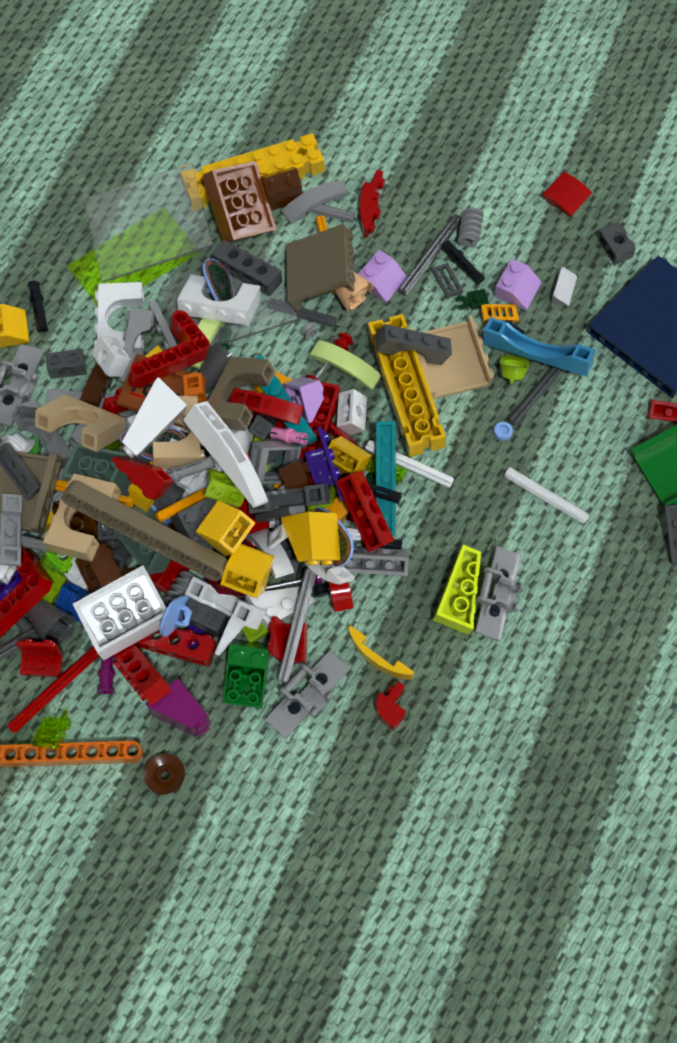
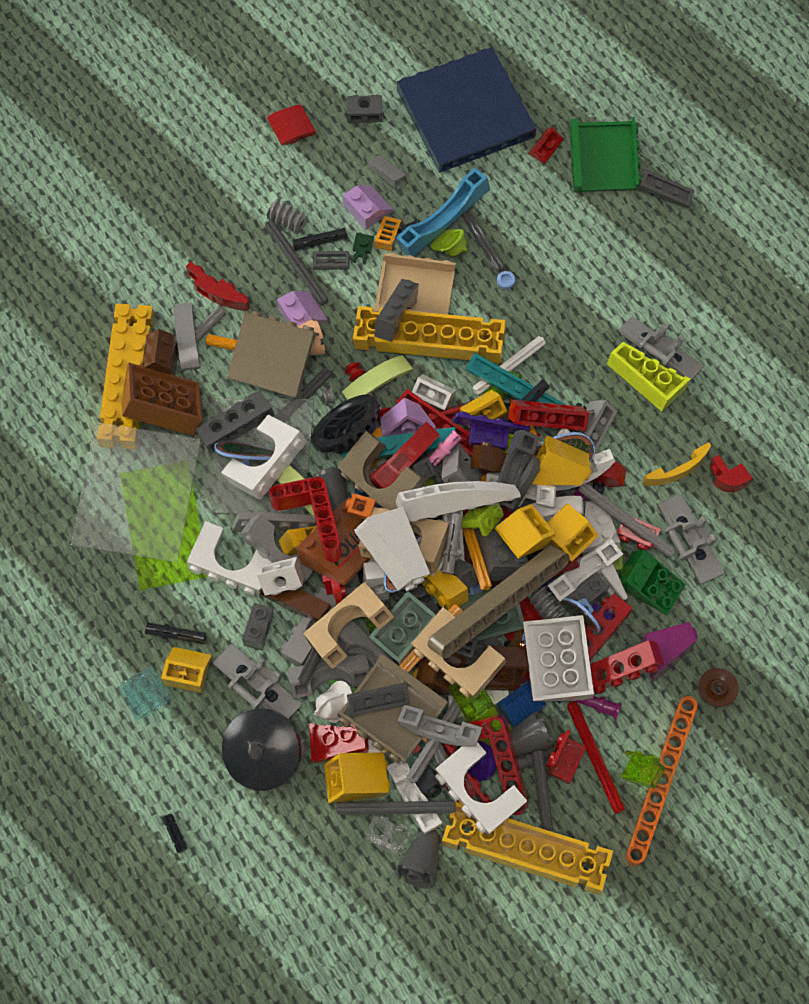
camera: 70 degrees left, 0 degrees up
(149, 478) = (446, 577): red slope -> none
(283, 352) = (346, 424): none -> black gear
(546, 495) = (583, 272): white axle -> none

